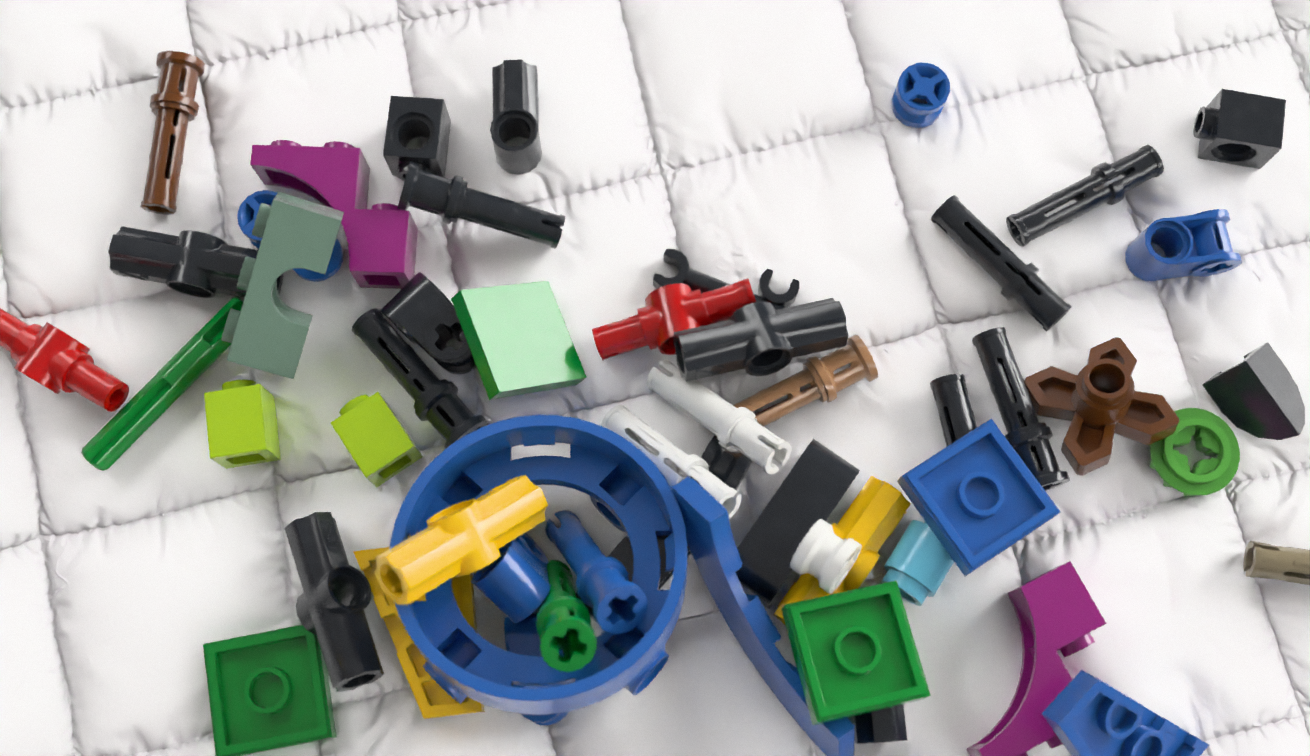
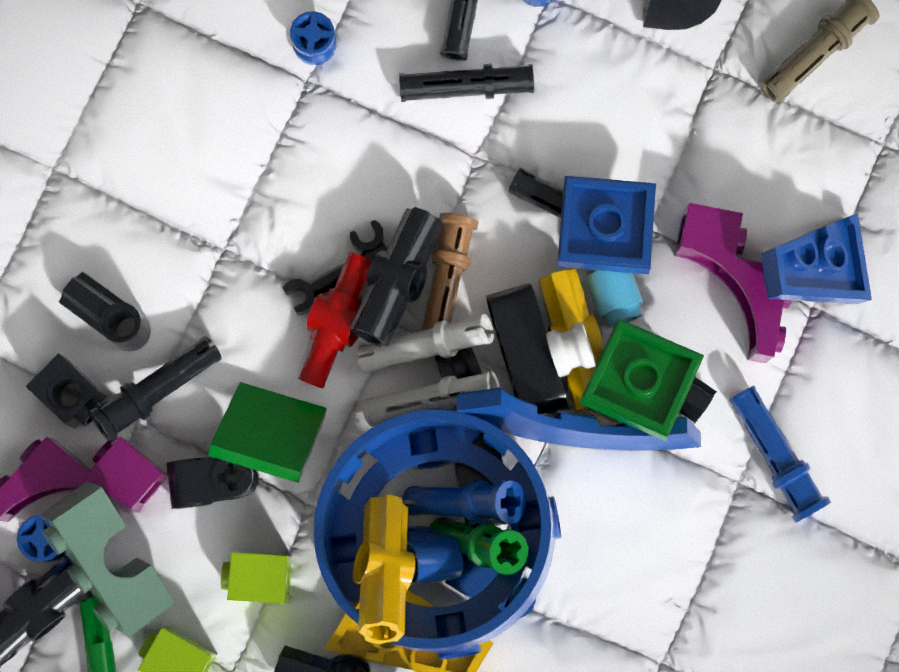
camera: 55 degrees left, 5 degrees up
(435, 403) = (267, 517): black pin -> none
(1035, 435) = (518, 135): black pin -> none
(1100, 404) = (607, 101): reddish brown plant -> none
(1212, 438) = (681, 50): bright green gear -> none

